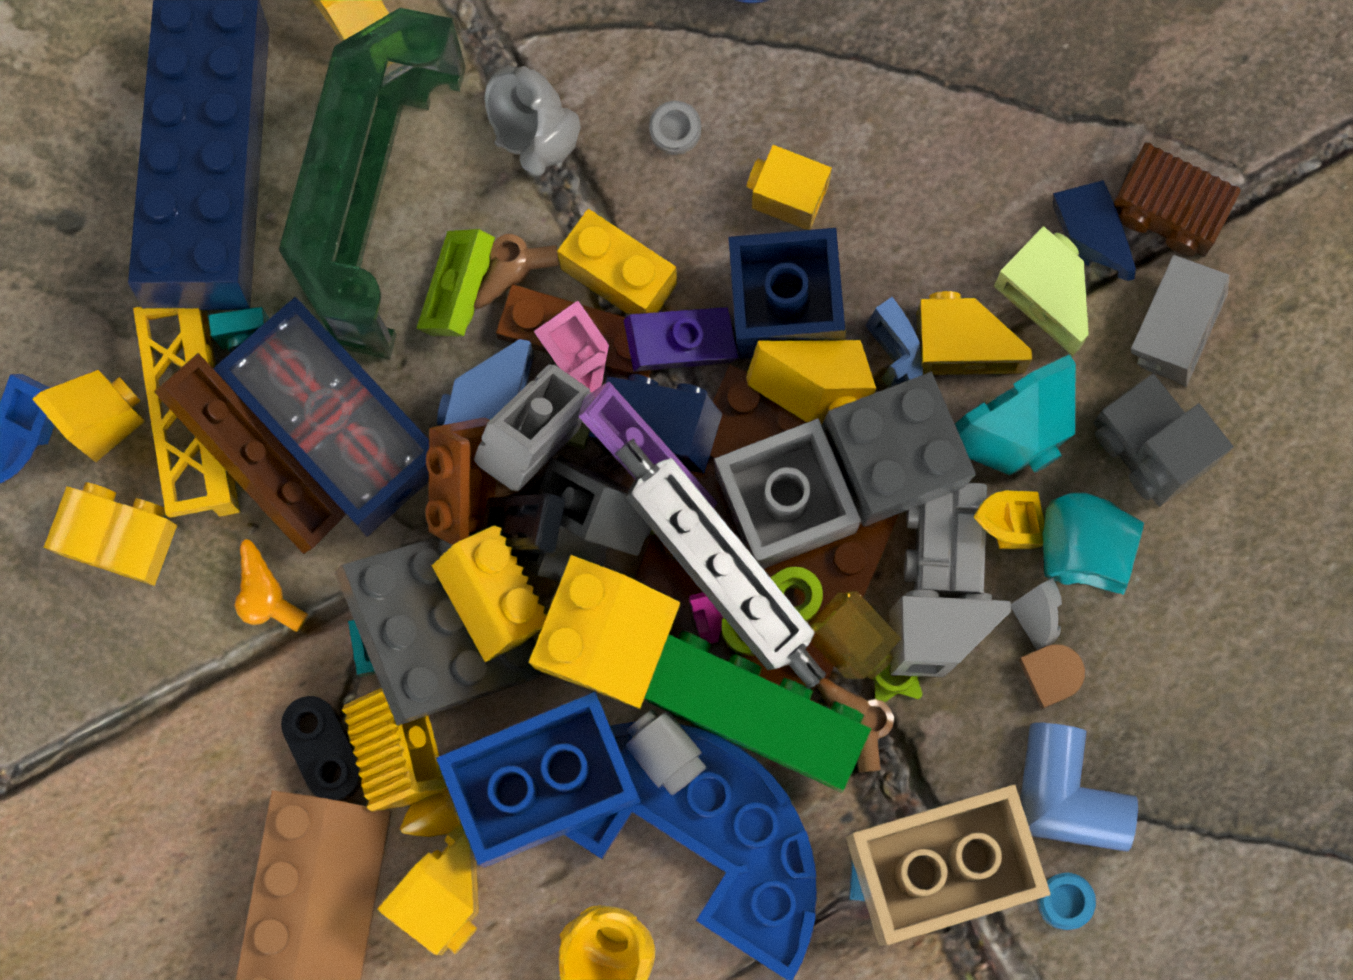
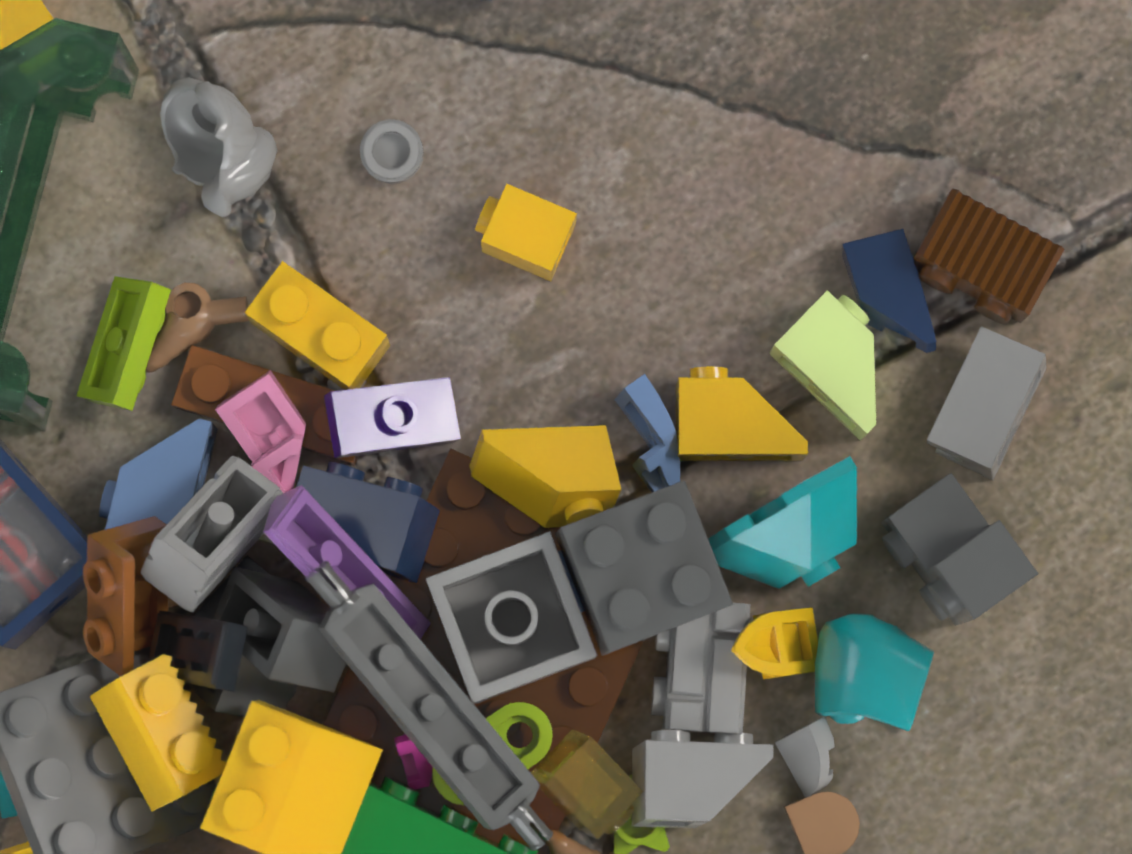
camera: 10 degrees left, 5 degrees up
(786, 287) = (518, 362): dark blue brick -> none

